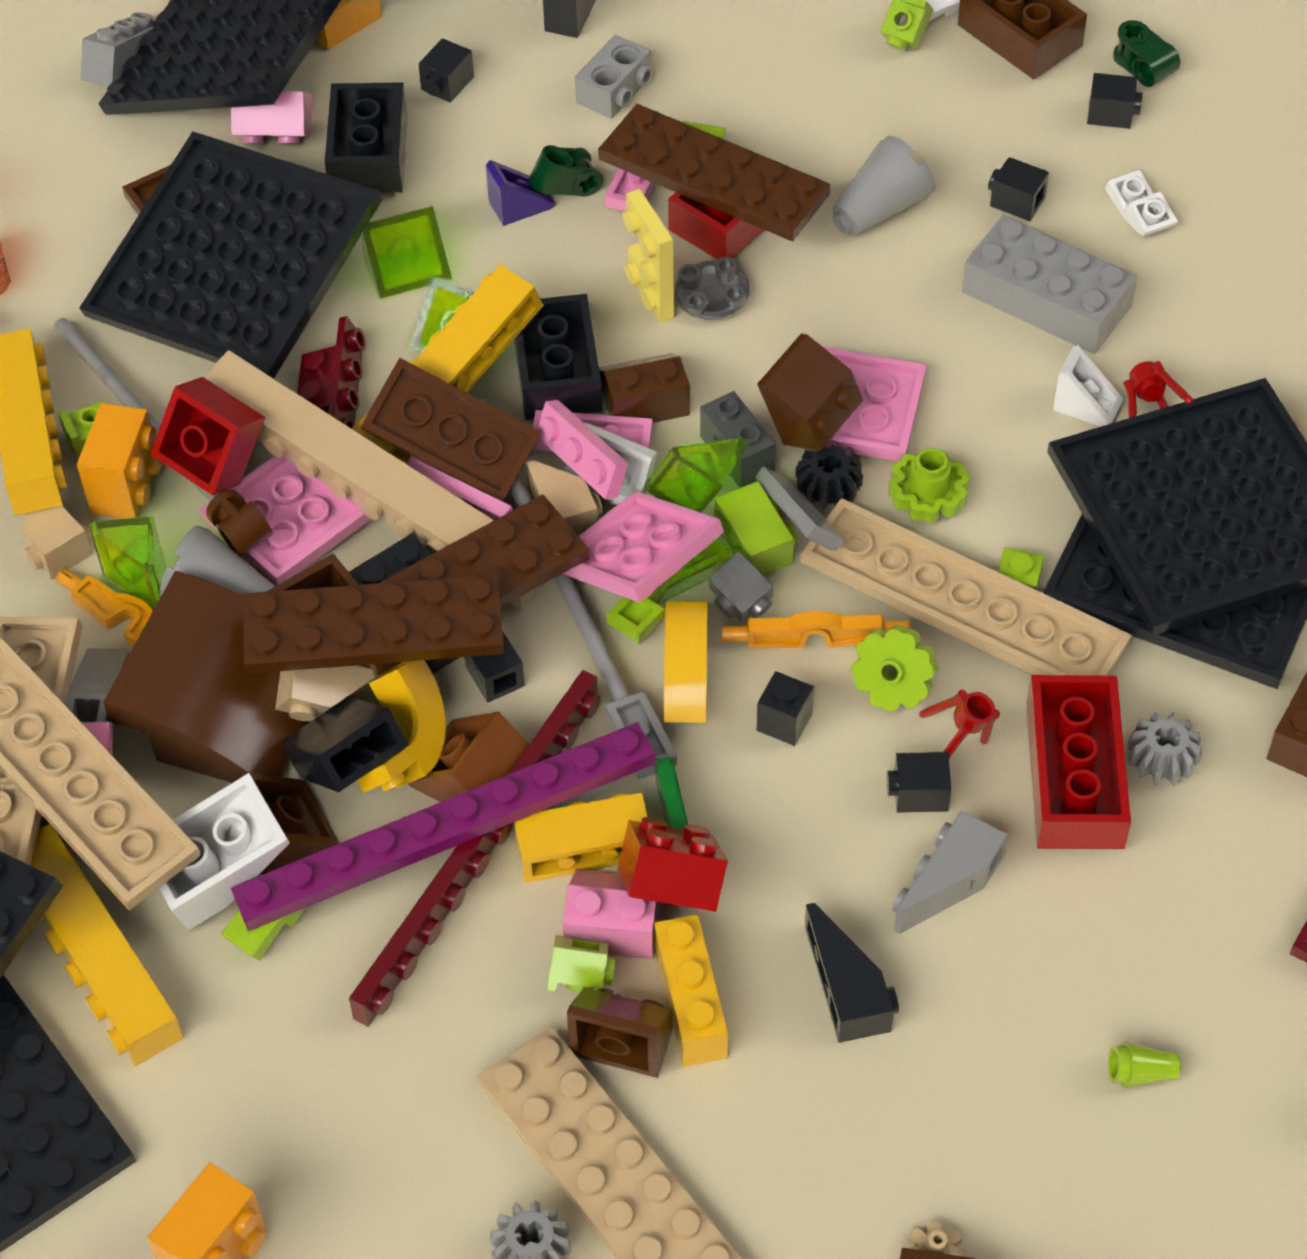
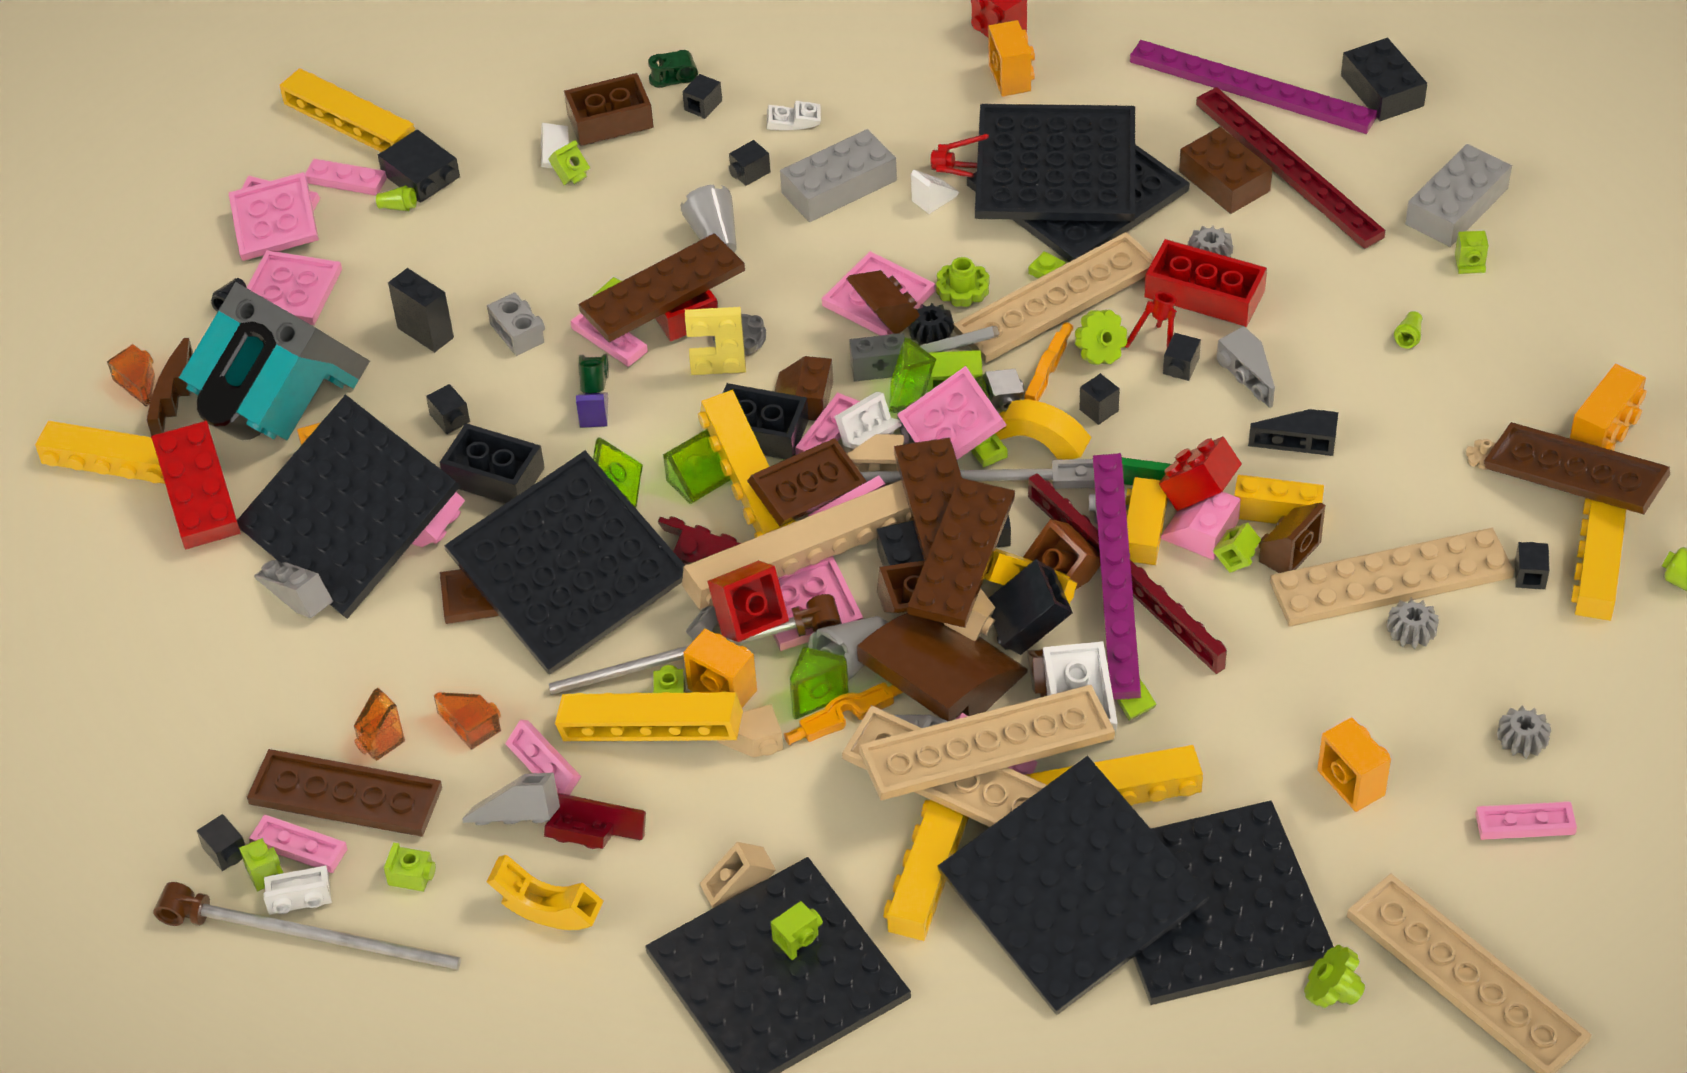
camera: 65 degrees left, 5 degrees down
(582, 449) = (858, 423): bright pink plate -> none

